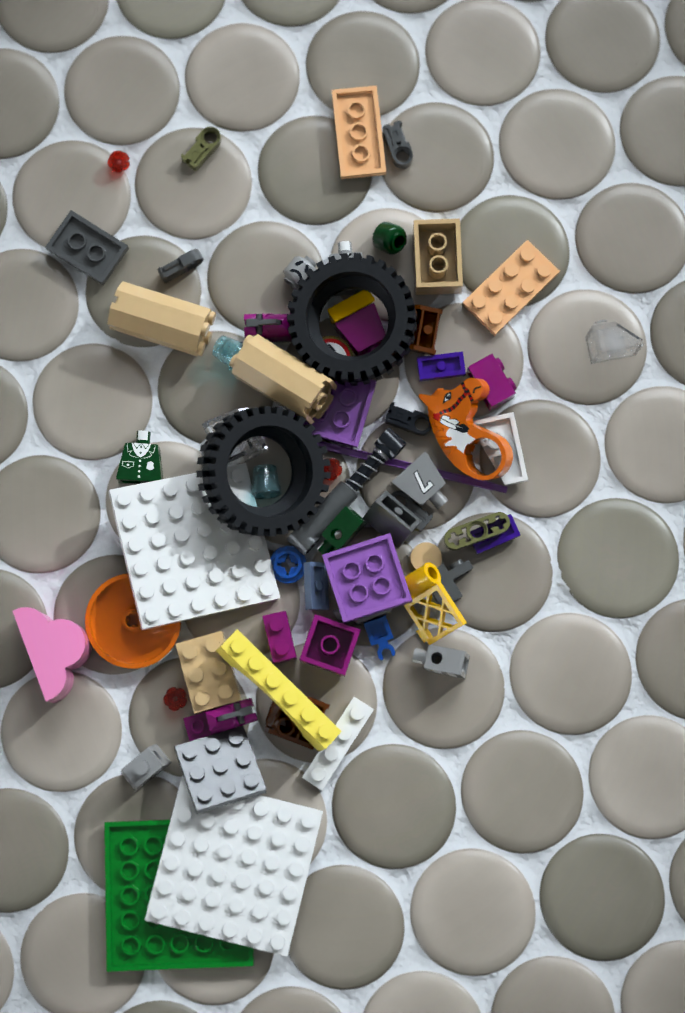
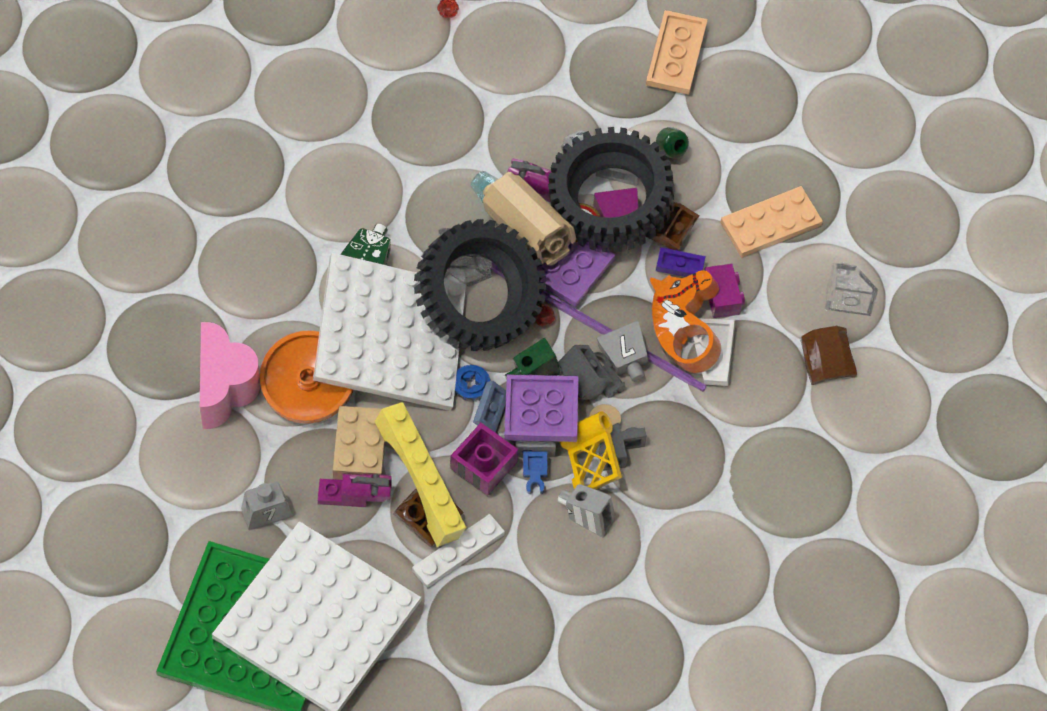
camera: 15 degrees right, 20 degrees down
(87, 247) = (391, 65): dark grey plate -> none
(161, 319) = (435, 139): tan brick -> none
(180, 694) = (319, 454): clear red plate -> none
(181, 265) = (470, 106): dark grey piece -> none
(201, 150) = (527, 23): olive piece -> none
(220, 769) = (337, 528): plate -> none
(265, 482) = (477, 304): clear light blue piece -> none
(279, 637) = (440, 436): magenta brick -> none
(344, 494) = (500, 360): piece -> none
(350, 306) = (613, 183): yellow slope -> none
(397, 143) = (709, 72): dark grey piece -> none
(406, 419) = (630, 298): black piece -> none
(437, 256) = (710, 170): tan brick -> none
(462, 542) = (669, 400): olive beam -> none
(488, 544) = (677, 419): dark purple plate -> none
(612, 415) = (827, 354): none -> reddish brown slope

